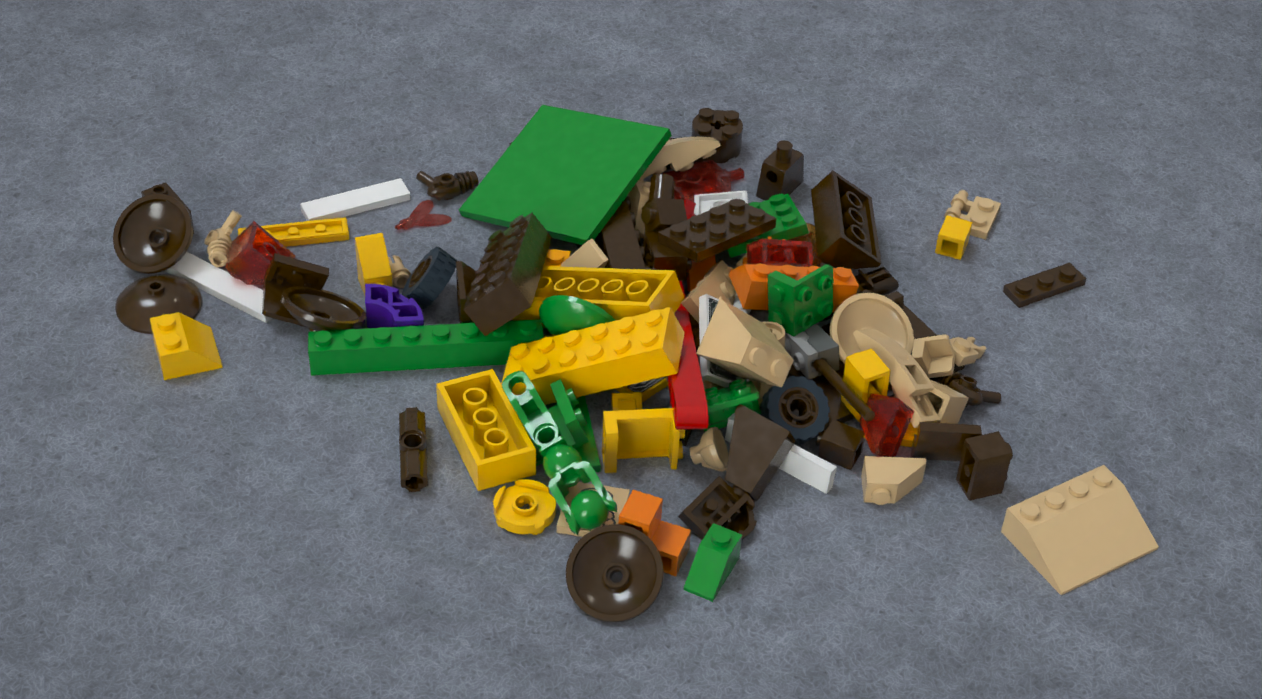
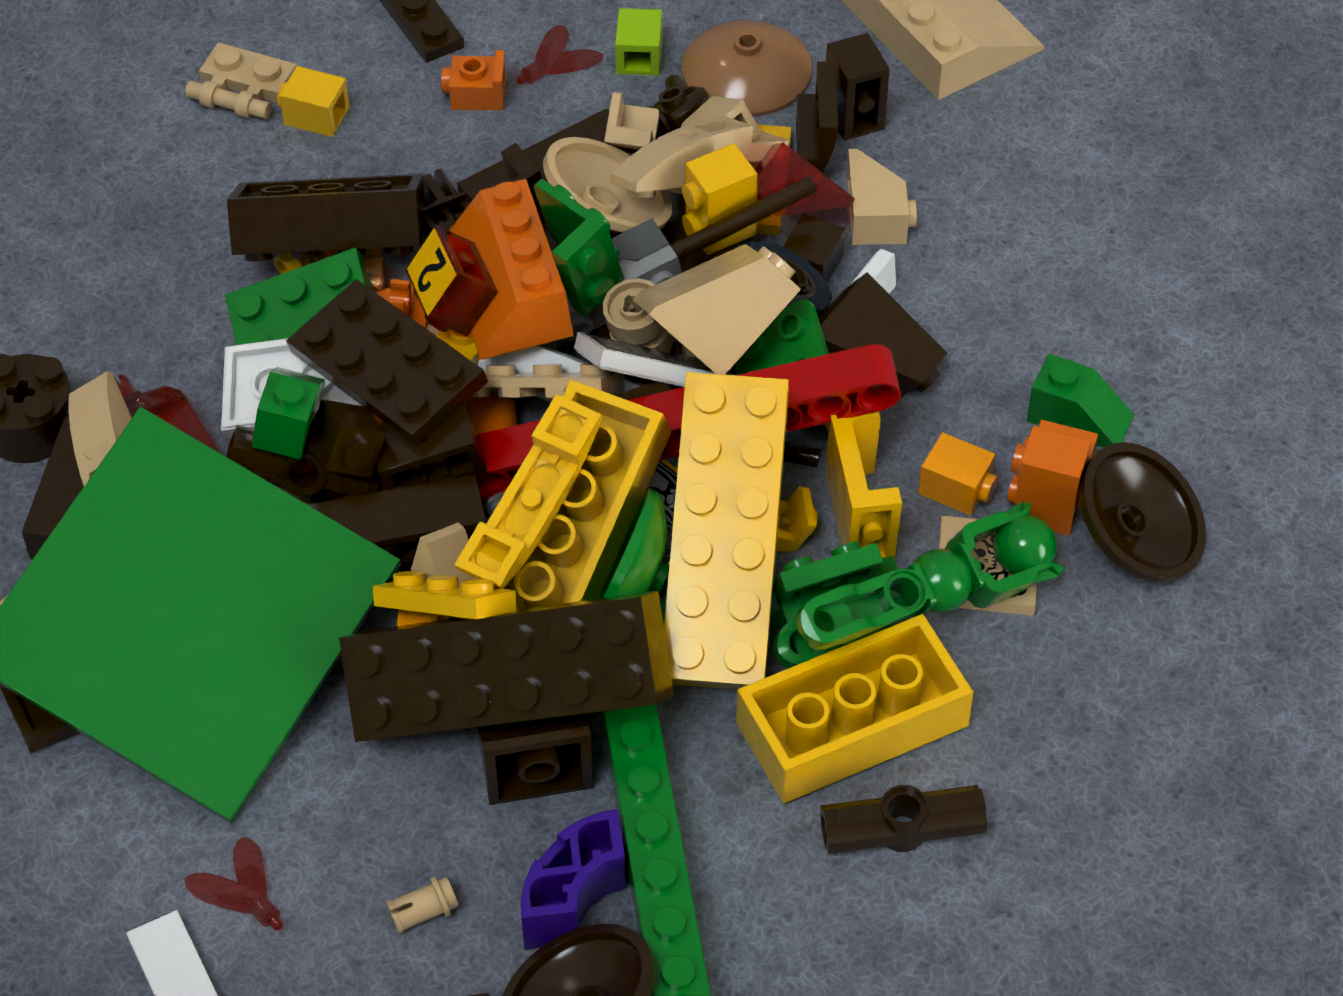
camera: 90 degrees left, 10 degrees up
(372, 260) = (446, 929): yellow slope -> none
(430, 277) = (474, 852): black wheel -> none
(448, 186) = (157, 842): dark brown piece -> none
(524, 521) = (1024, 639): yellow plate -> none
(549, 245) = (444, 596): none -> yellow plate
(574, 258) = (534, 494): none -> yellow slope
(664, 487) = (958, 474): none -> light orange brick
(679, 182) = (286, 412): none -> green slope
(722, 507) = (975, 400): dark brown slope -> none
(781, 171) = (154, 311): dark brown torso -> none
(966, 350) = (585, 107): tan plate -> none
(980, 298) = (475, 82): none -> orange brick
(1012, 344) = (552, 59): none -> clear red piece
(1026, 376) = (638, 41): none -> lime brick
(1027, 429) = (749, 63): none -> medium nougat dish

